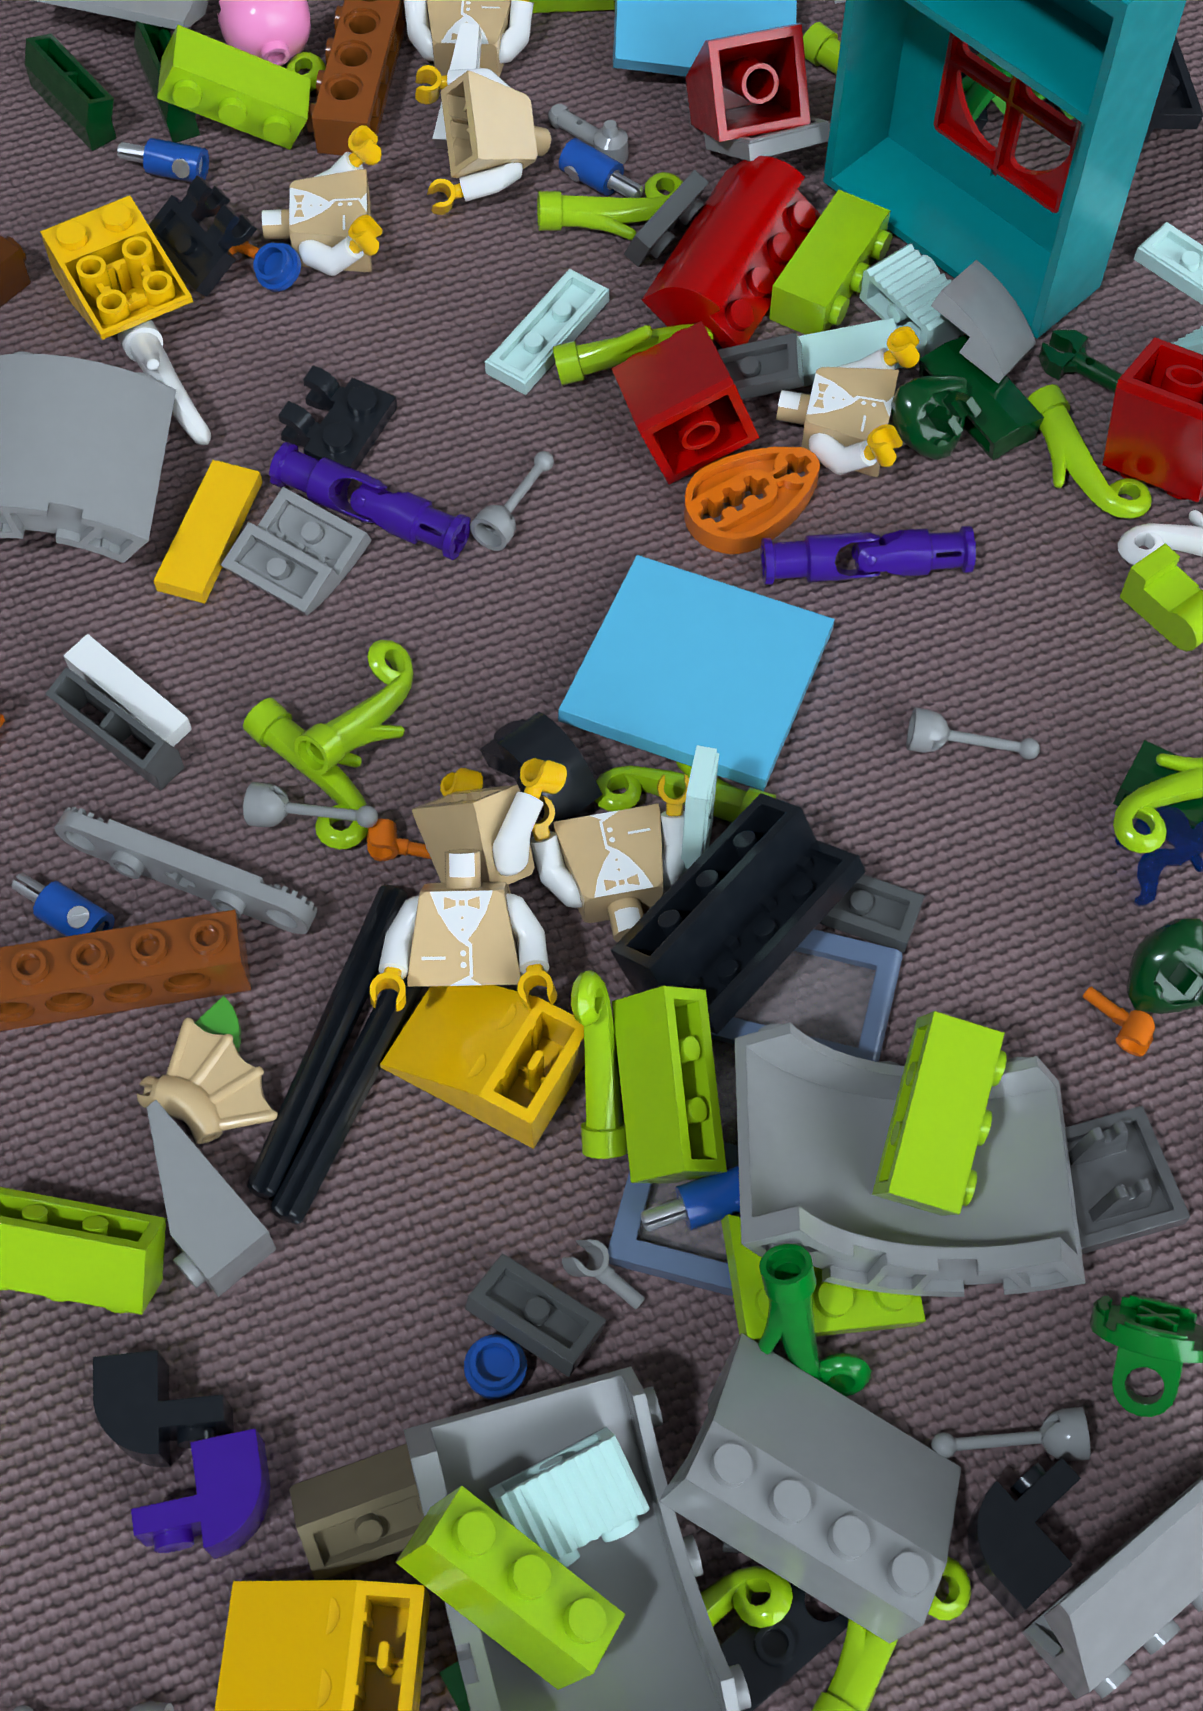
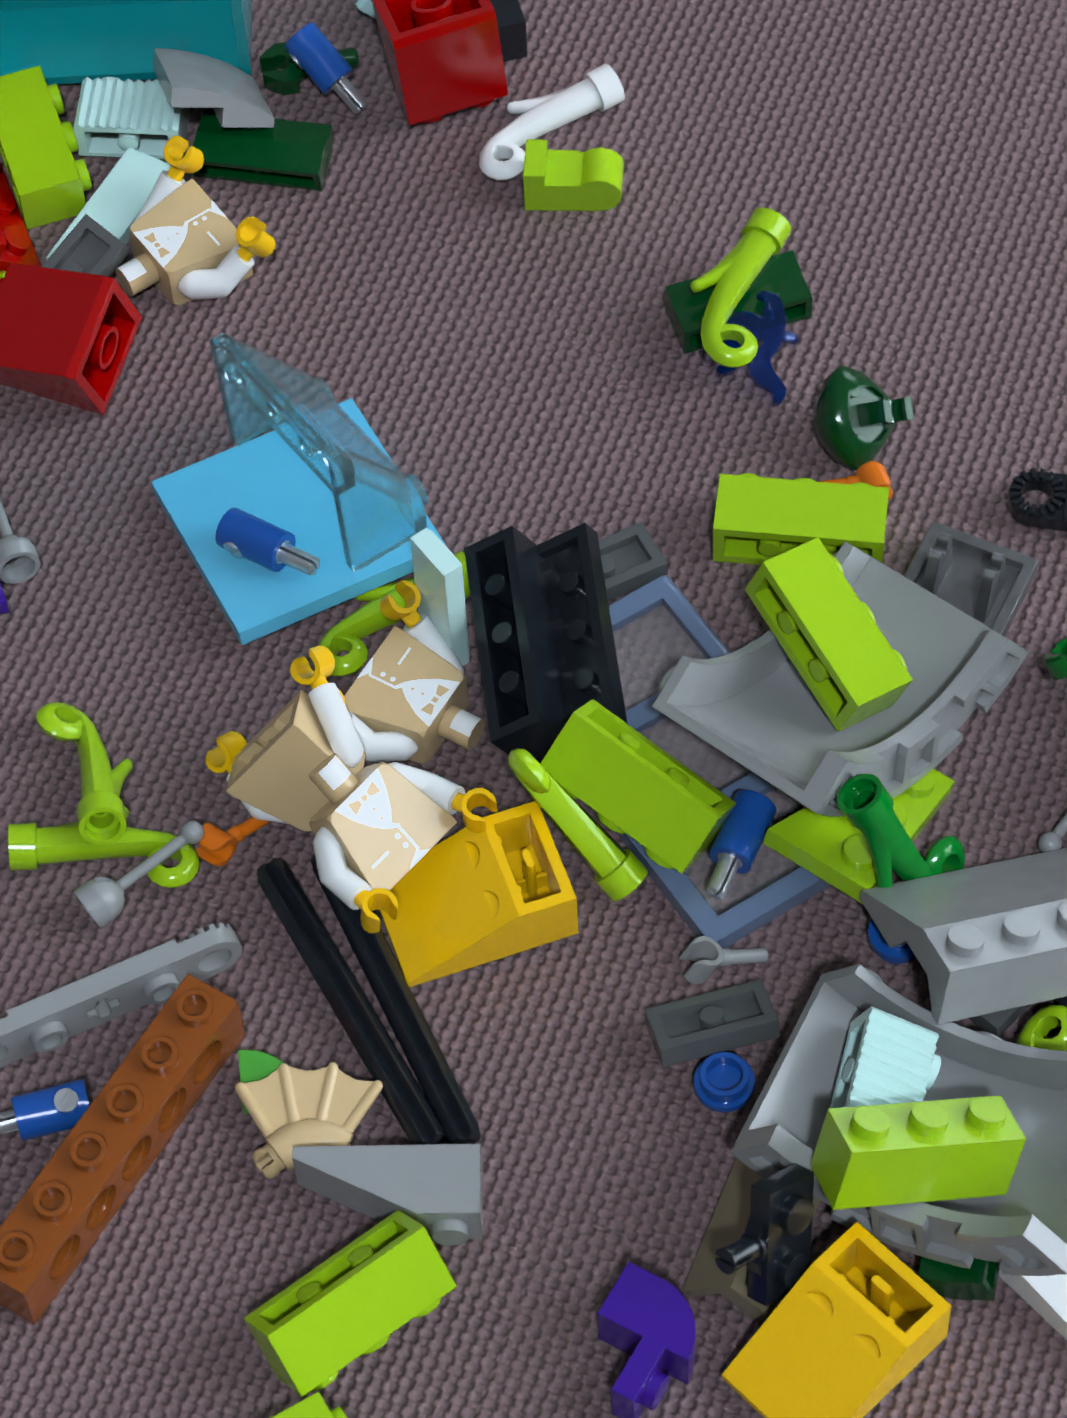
camera: 45 degrees left, 5 degrees down
(141, 1418) = (535, 1348): black brick -> none
(354, 1530) = (775, 1236): none -> black plate
(544, 740) = (258, 678): black brick -> none
(642, 660) = (262, 543): none -> blue piece
(744, 631) = (372, 496): none -> clear light blue windscreen
(760, 473) = (153, 364): orange piece -> none
(898, 553) = (341, 311): dark purple piece -> none
(930, 731) = (509, 414): light grey hinge -> none
(932, 413) = (253, 186): dark green piece -> none
(1041, 1007) = (772, 515): none -> lime brick
(1070, 453) = (382, 137): lime plant -> none
(1088, 371) = (324, 65): none -> blue piece

